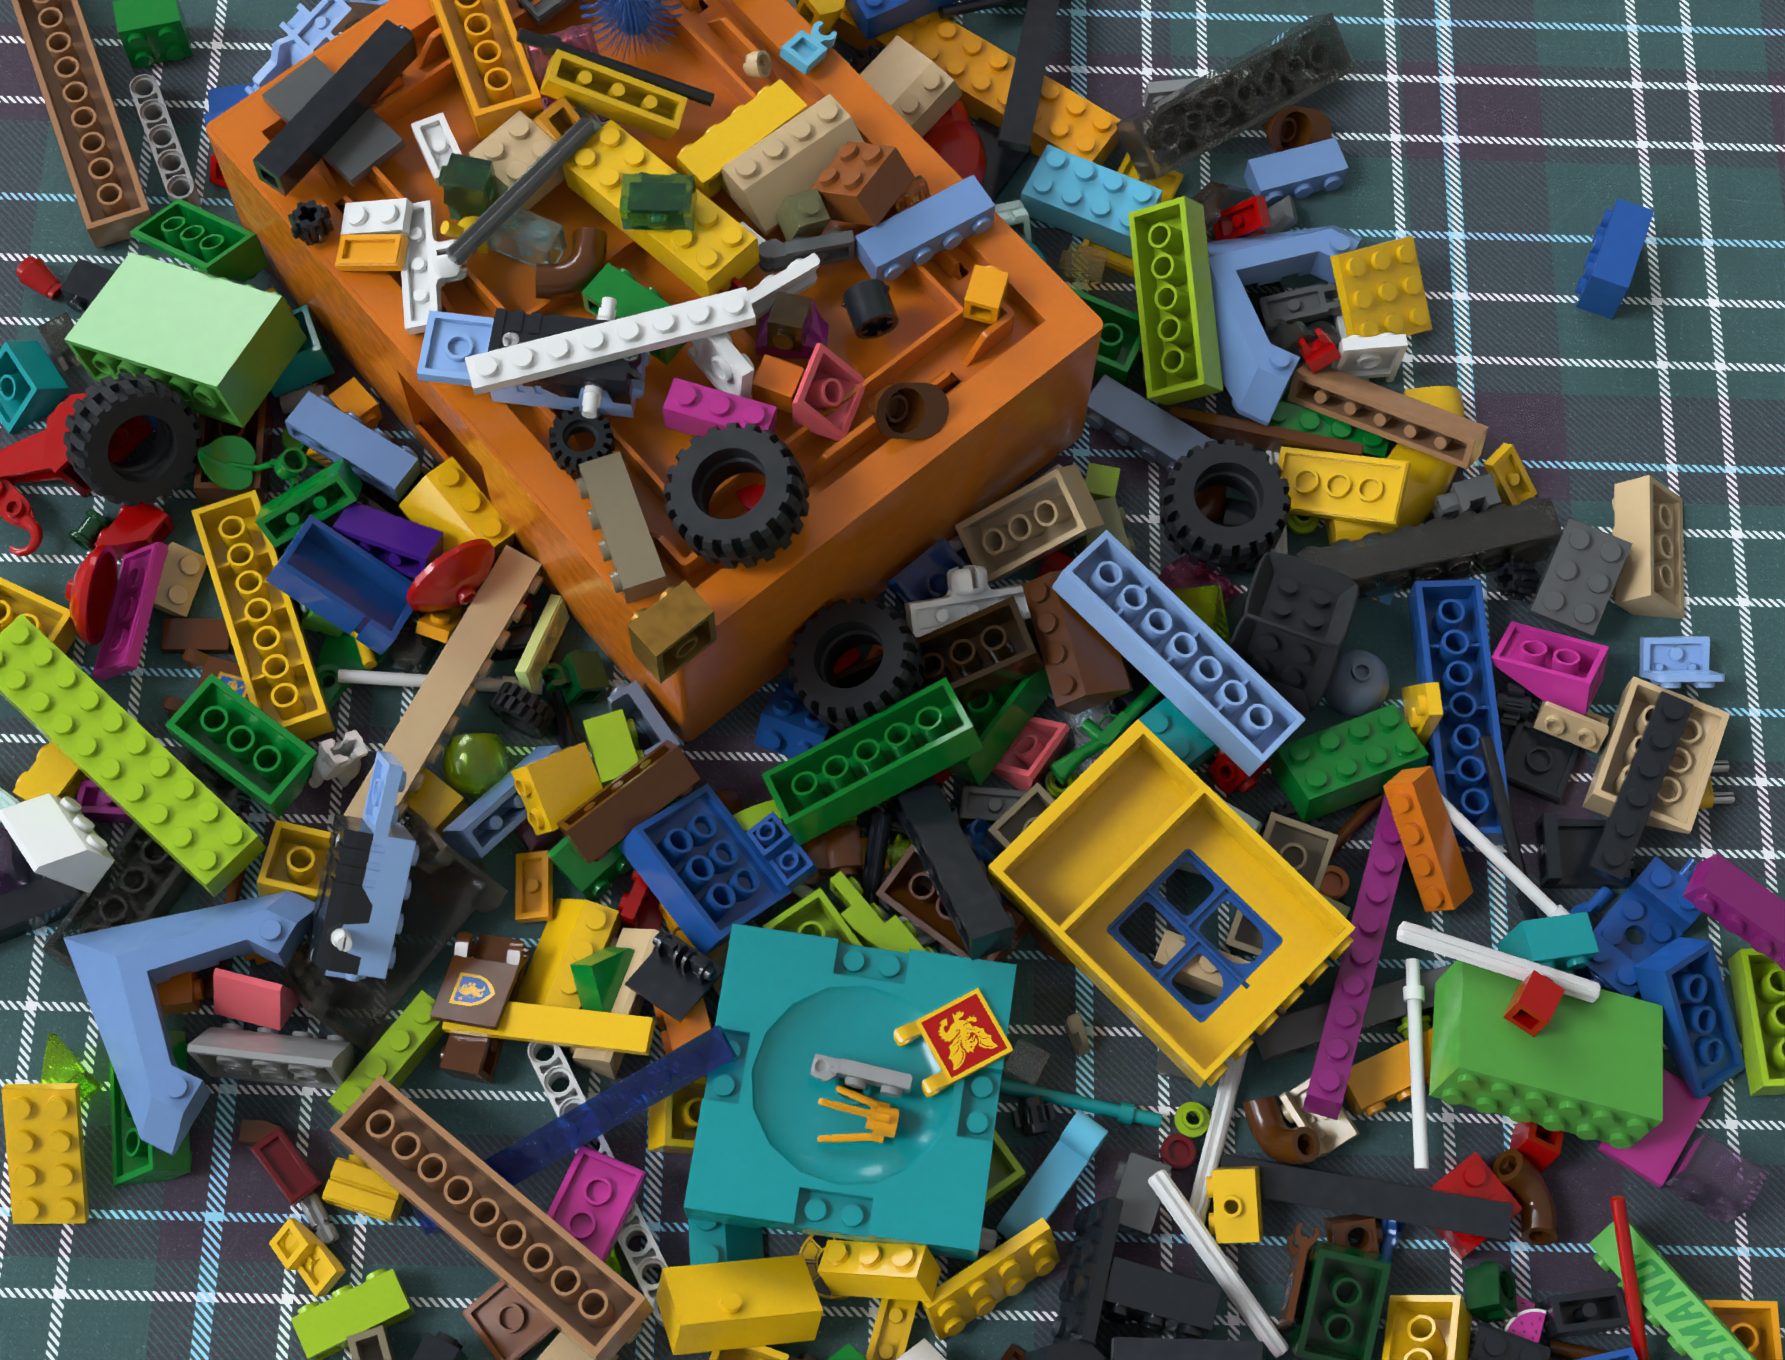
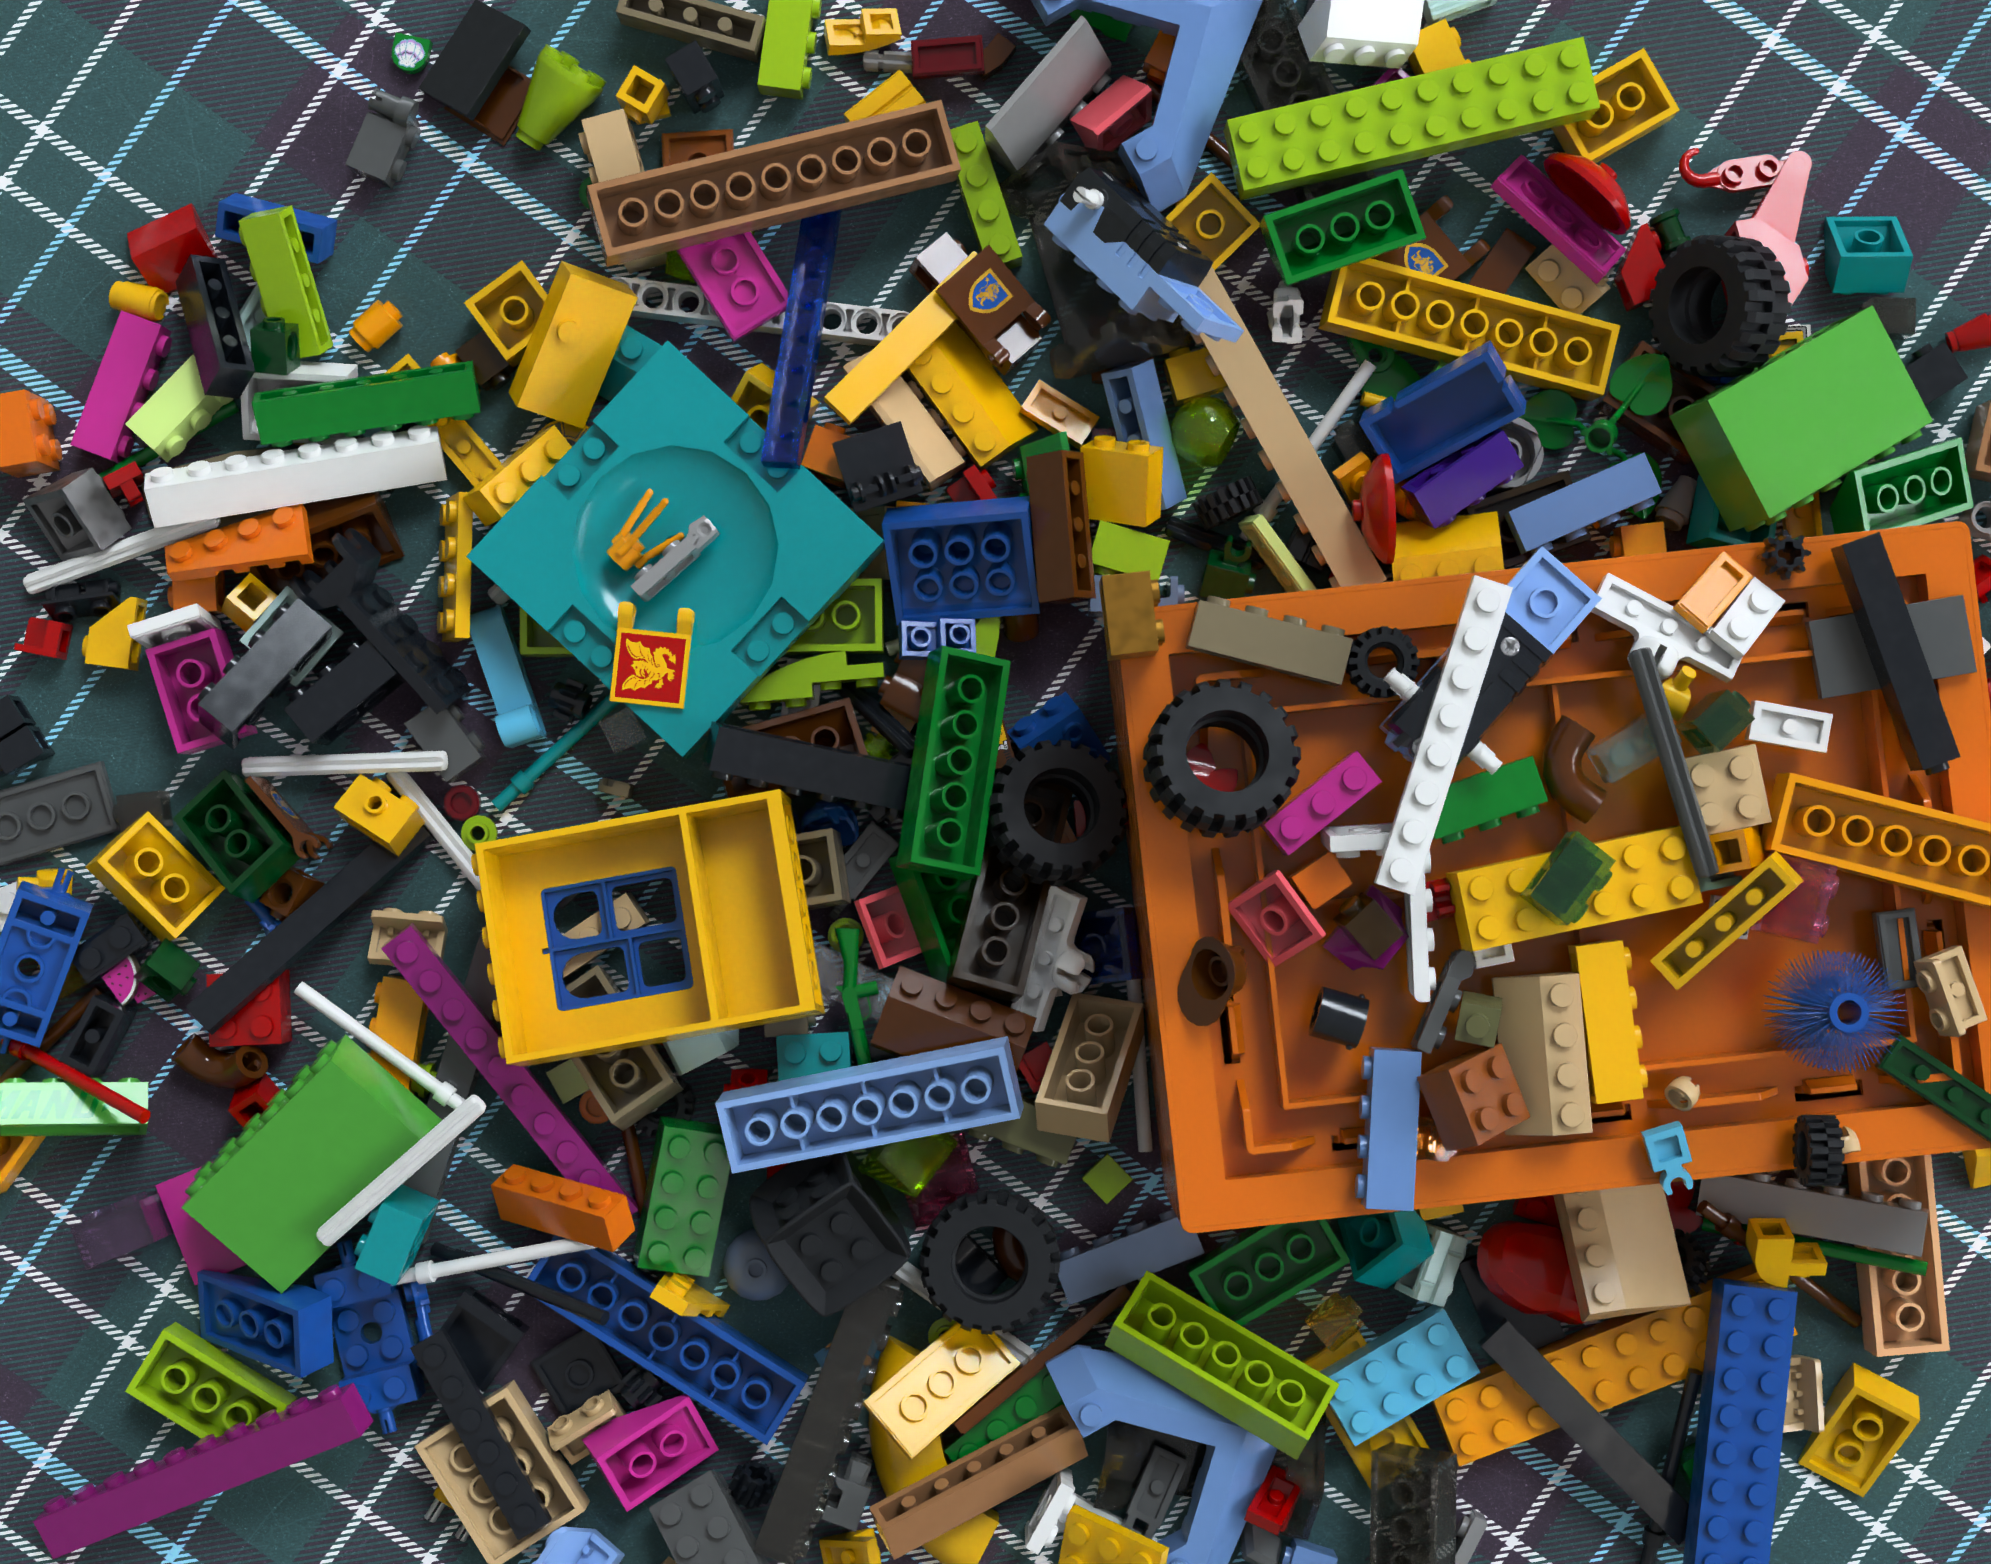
camera: 125 degrees right, 20 degrees up
(318, 495) = (1550, 430): green brick -> none
(550, 43) = (1811, 889): black bar -> none
(601, 977) = (928, 412): green slope -> none
(985, 294) = (1284, 1138): light orange brick -> none
(1275, 1137) = (413, 890): reddish brown cylinder -> none
(1319, 352) = (1081, 1465): red tile -> none
(1534, 1003) = (342, 1171): red brick -> none

